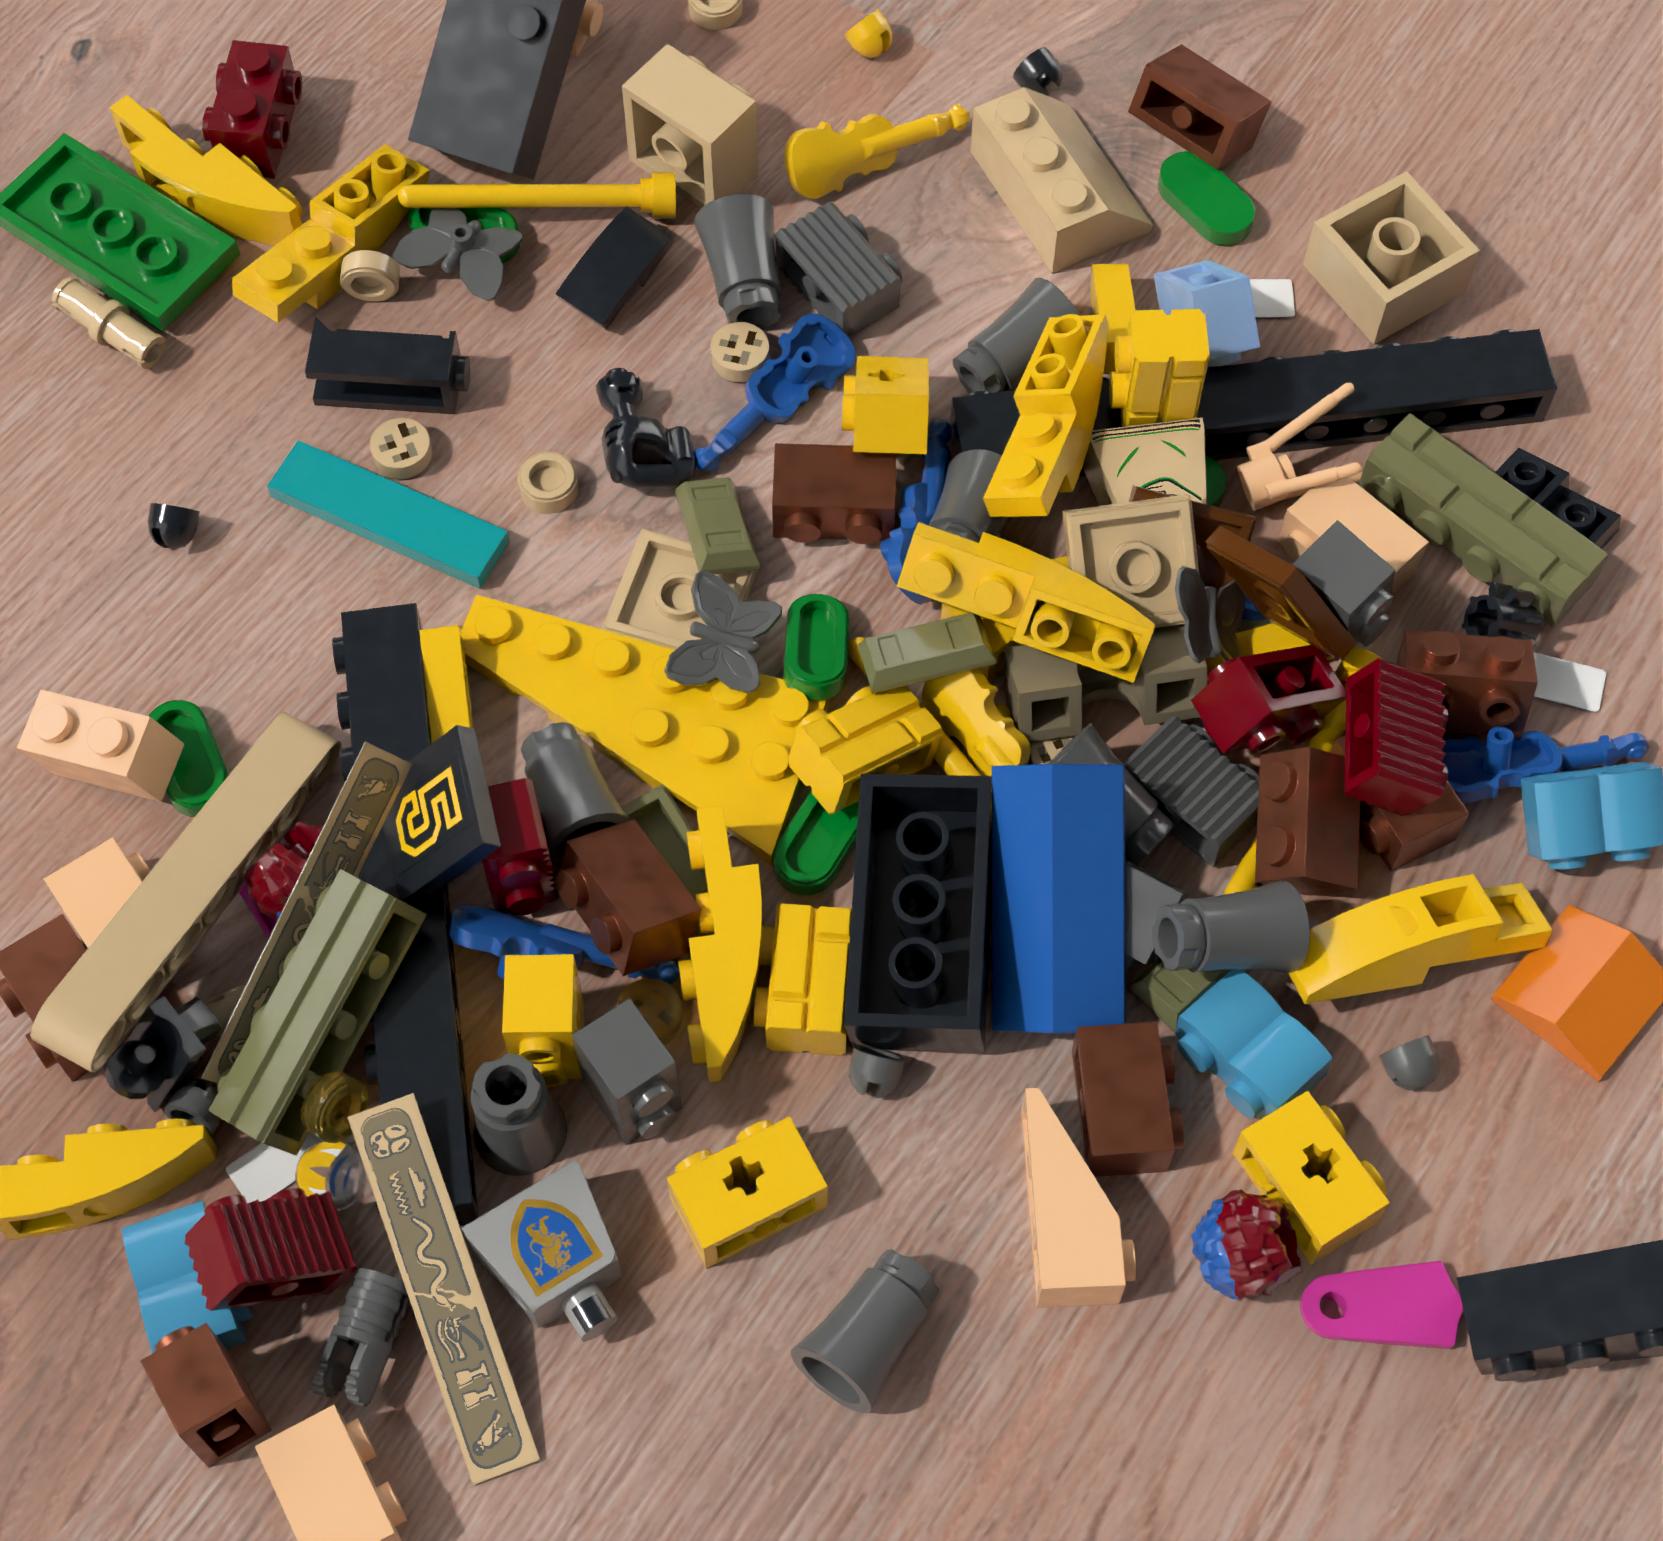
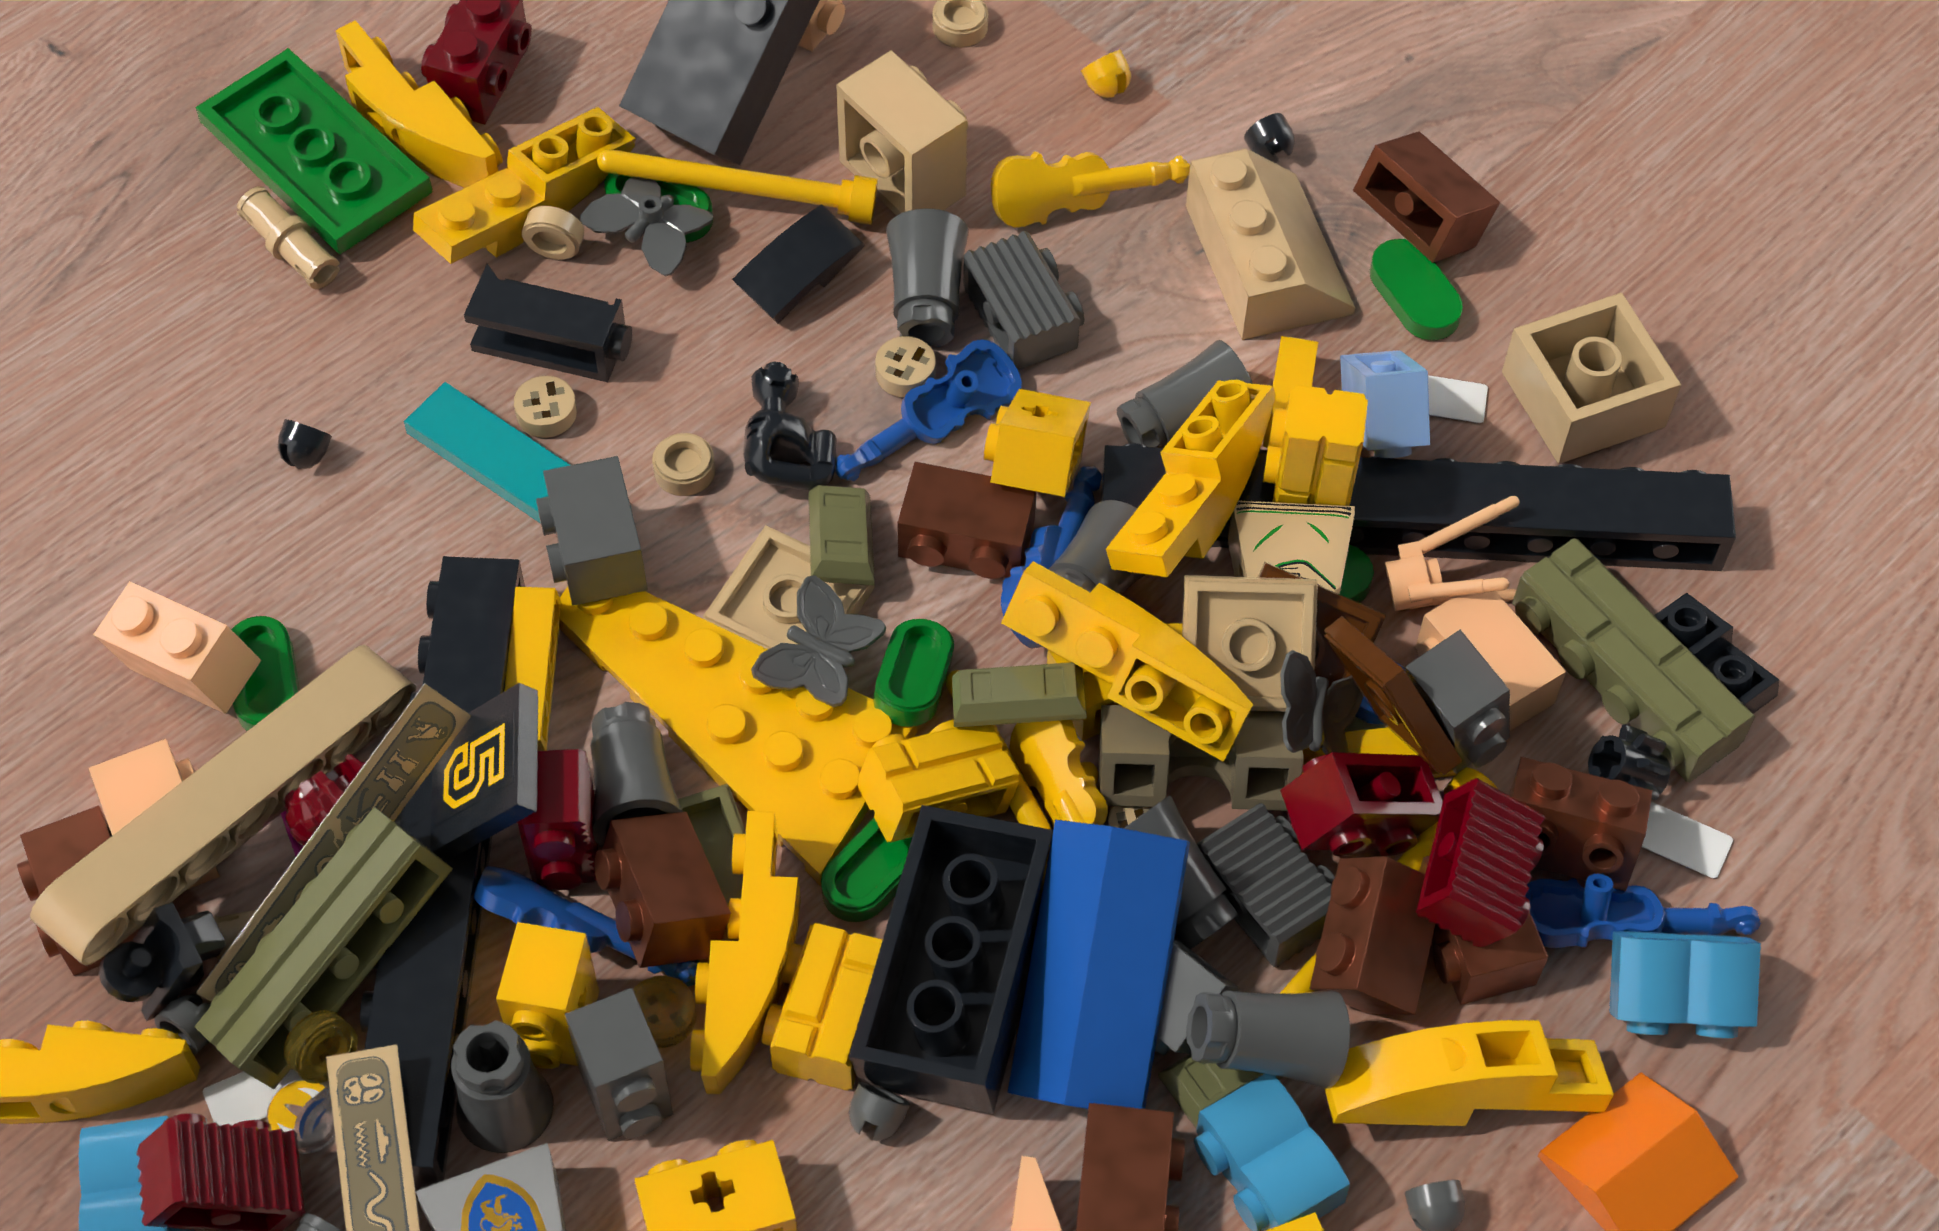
camera: 10 degrees right, 5 degrees down
(482, 562) = (594, 531): none -> dark grey brick

